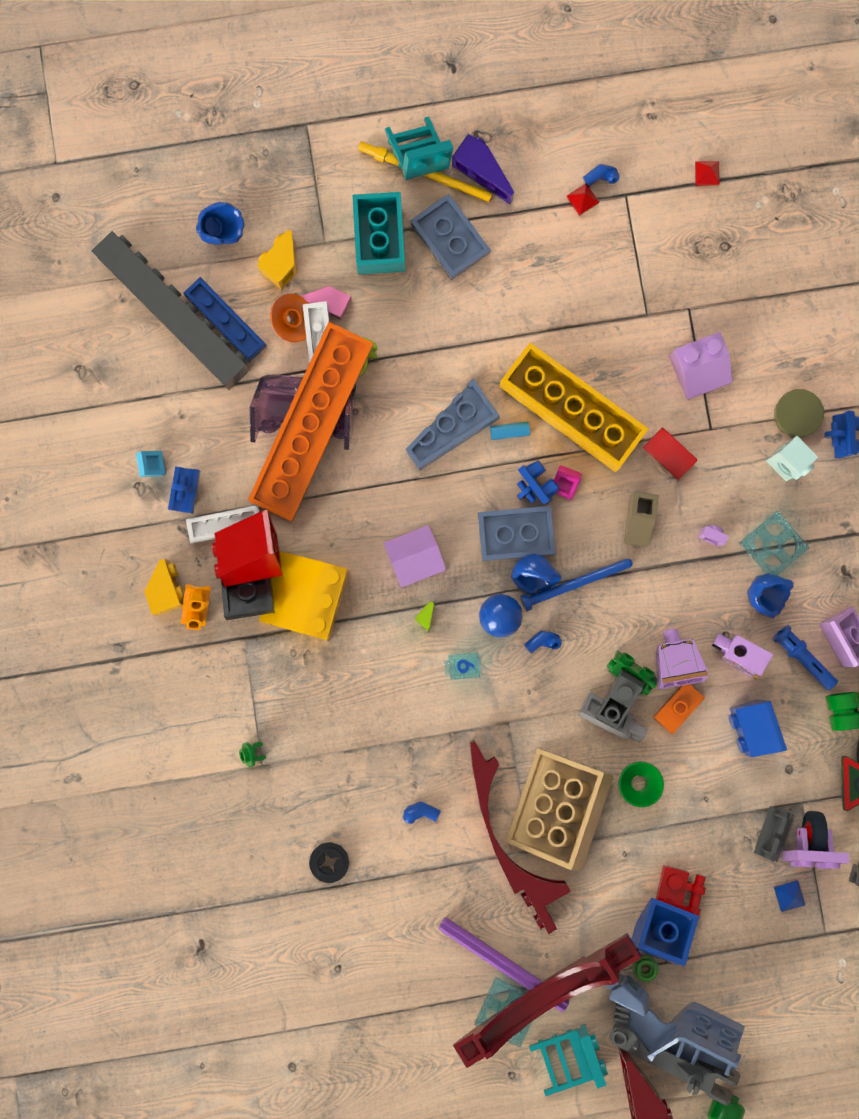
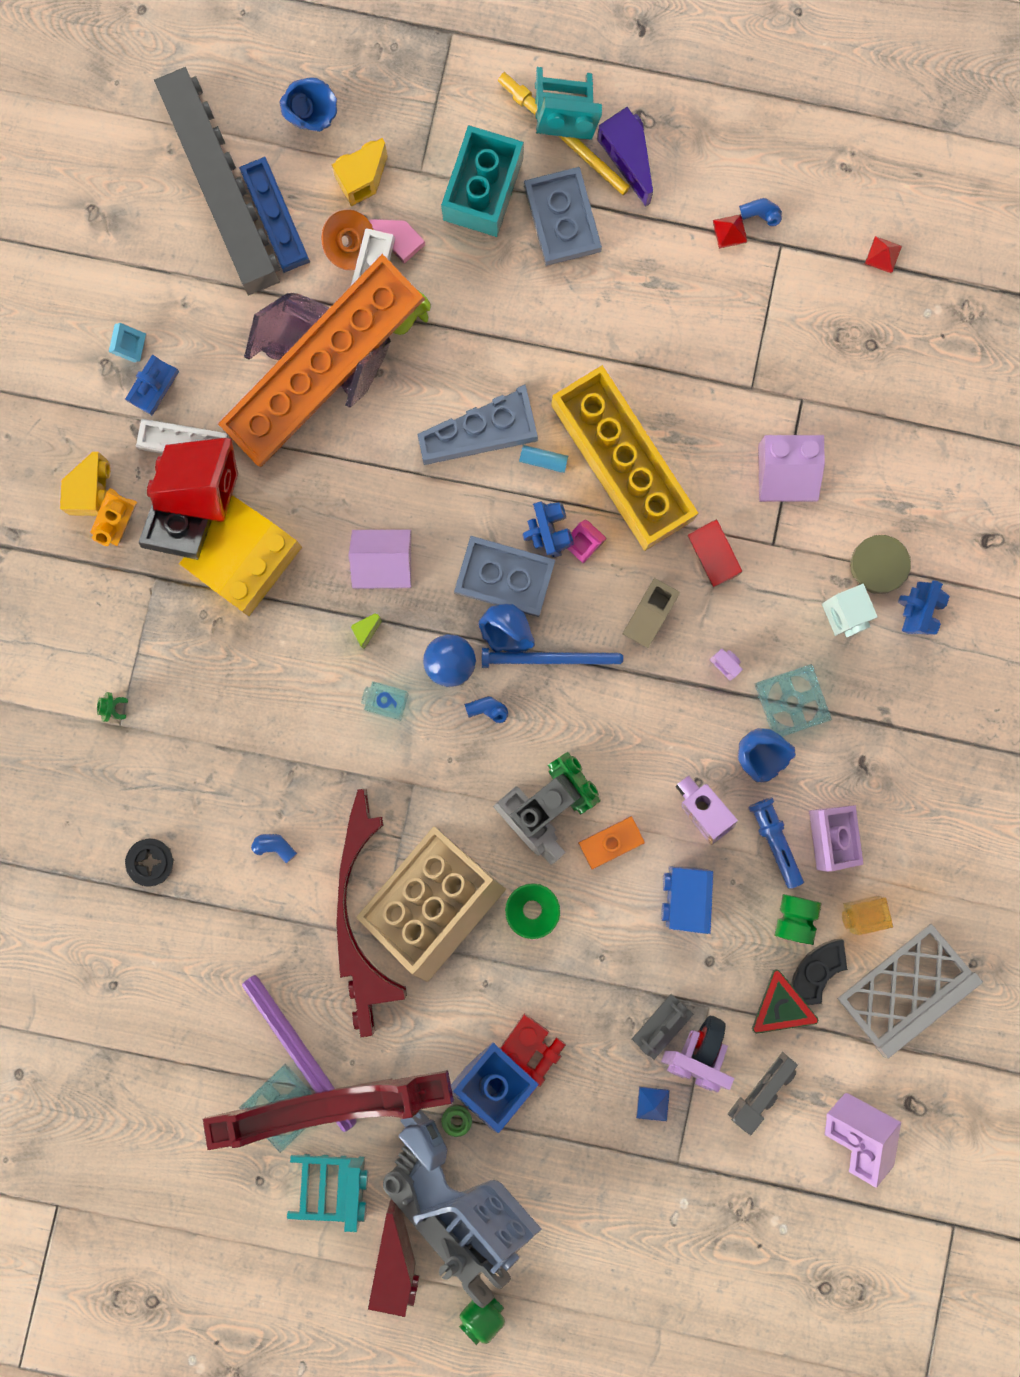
camera: 20 degrees right, 0 degrees up
(679, 662) = (630, 790): lavender torso -> none

